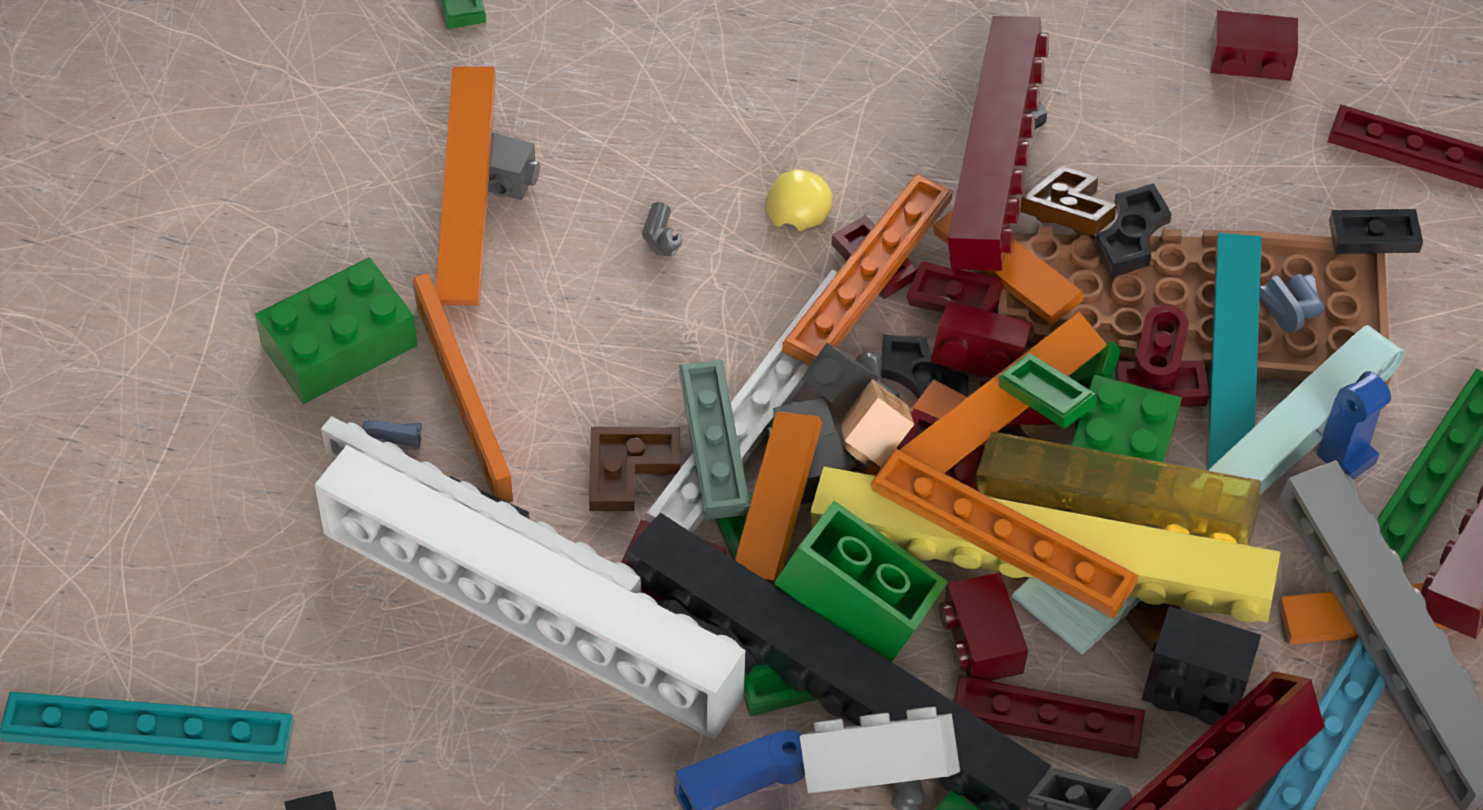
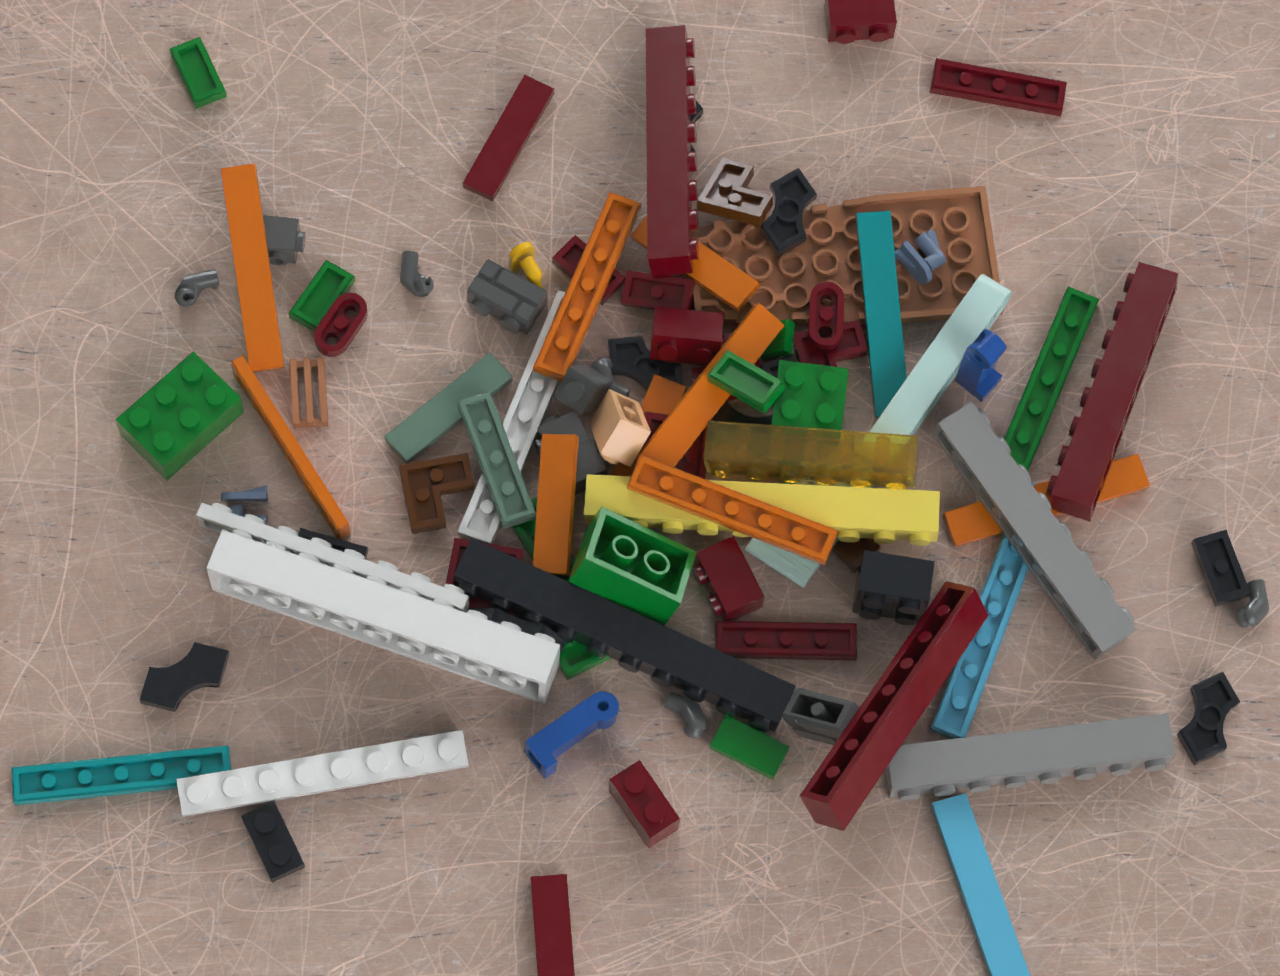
camera: 15 degrees left, 15 degrees up
(238, 632) = (171, 684): none -> black tile
(392, 200) = (193, 284): none -> dark grey arm
(403, 768) = (322, 773): none -> white plate
(505, 307) = (307, 365): none -> nougat tile
(543, 237) = (320, 295): none -> green tile
(555, 269) = (339, 326): none -> dark red plate
(659, 381) = (441, 412): none -> sand green tile
(767, 268) = (506, 297): none -> dark grey brick
(796, 232) = (523, 257): none -> yellow piece
(799, 199) = (518, 224): light yellow hair -> none
(806, 109) = (508, 138): none -> dark red tile
(879, 751) = (670, 700): white brick -> none
(1375, 231) = (977, 182): black plate -> none

